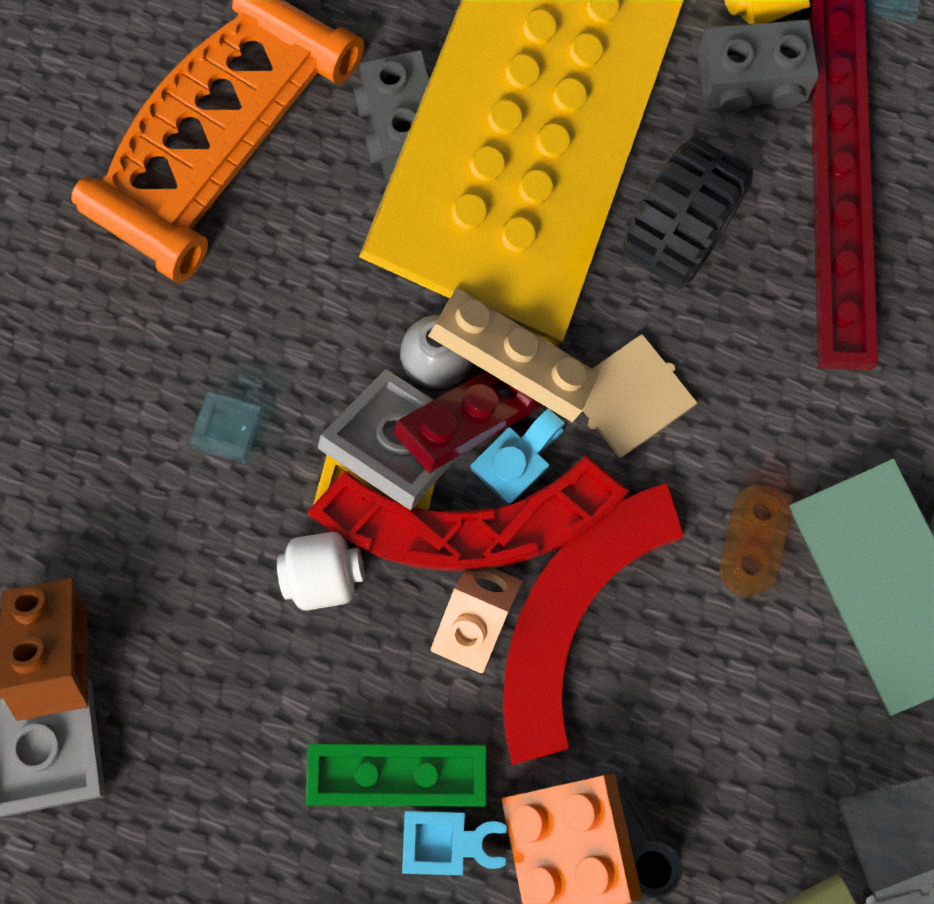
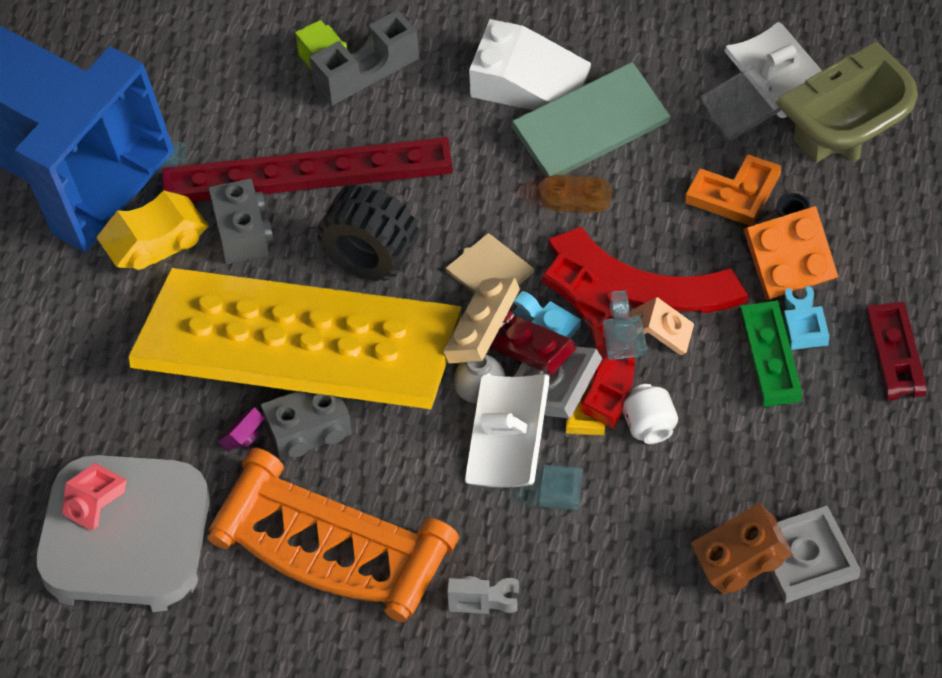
camera: 95 degrees left, 20 degrees down
(79, 286) = (476, 596): none -> light grey plate
(328, 365) = (507, 431): none -> white shield
(399, 34) = (242, 431): none -> magenta plate
(445, 549) = (622, 333): none -> clear light blue plate
(706, 795) = (737, 198): none -> orange plate

